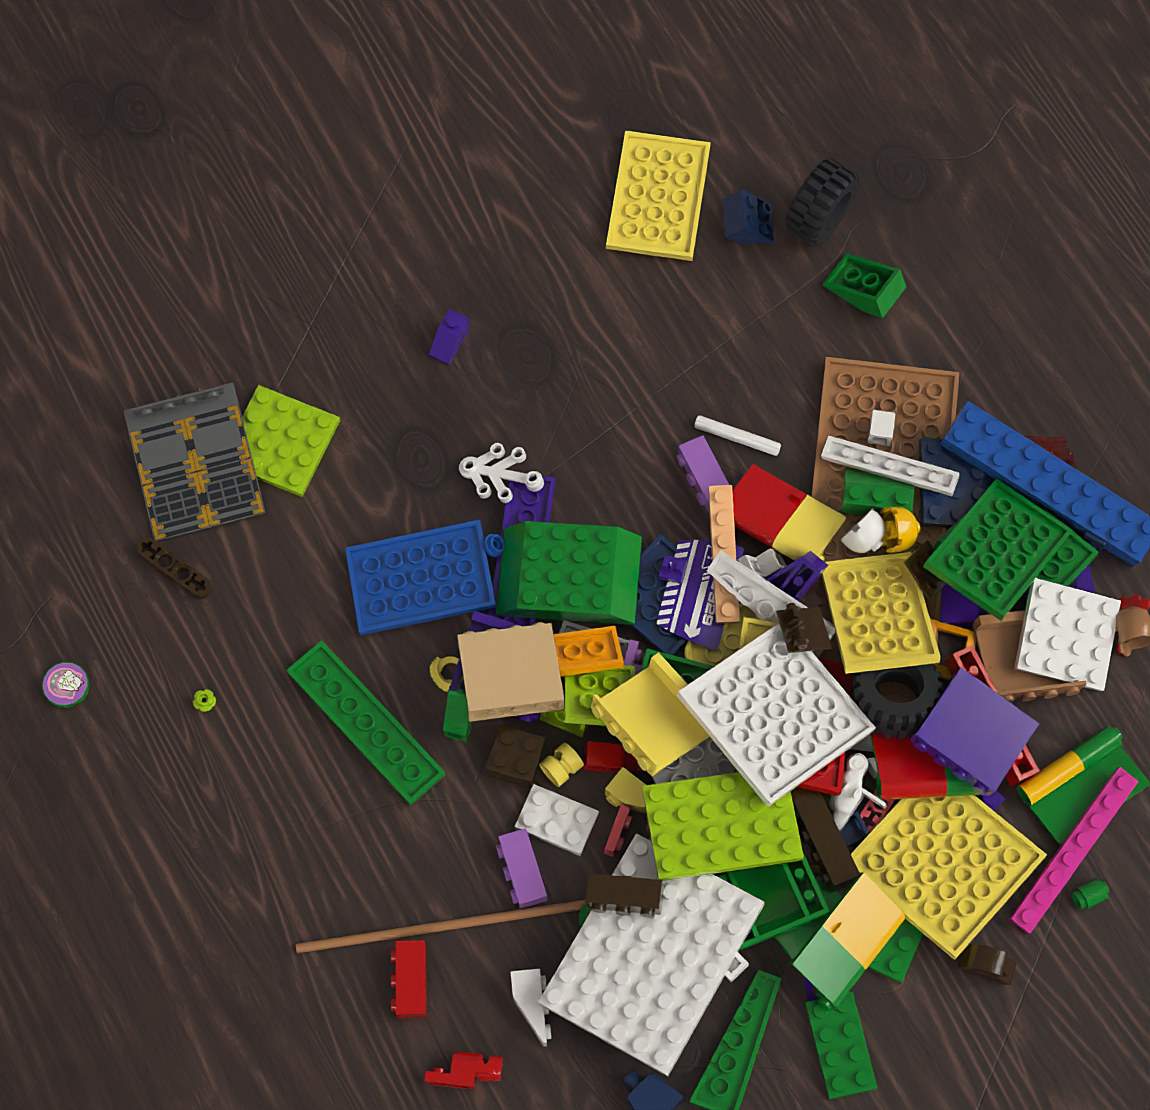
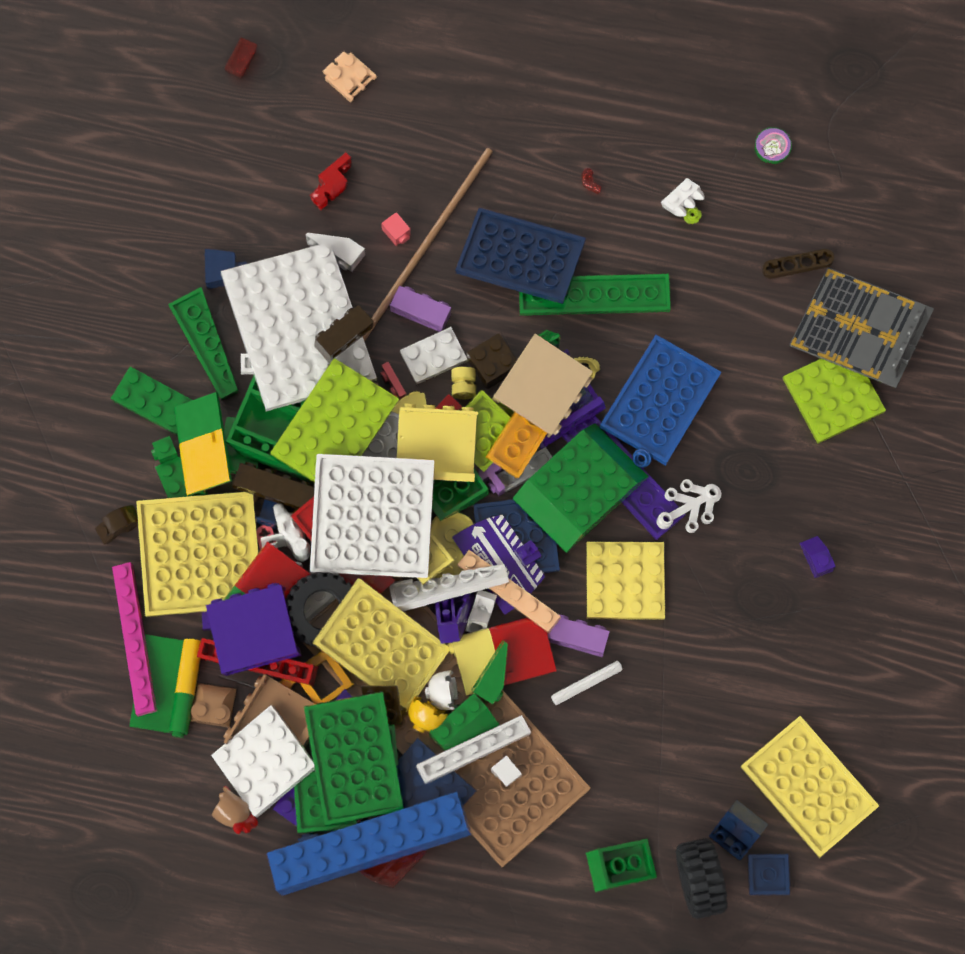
camera: 130 degrees right, 5 degrees up
(194, 722) = (683, 197): none -> white plate
(252, 823) = (588, 182): none -> clear red arm
(386, 818) = (520, 255): none -> dark blue plate
(409, 979) = (412, 194): red brick -> none
(460, 962) = (396, 229): none -> coral brick
(616, 476) = (625, 580): none -> light yellow plate
(762, 170) = (768, 874): none -> dark blue plate
(803, 629) = (409, 582): dark brown hinge -> none
(813, 502) = (491, 680): none -> green slope
(880, 984) = (164, 450): none -> green brick
(1061, 729) = (213, 705): none -> medium nougat slope
(1090, 893) = (100, 624): green brick -> none

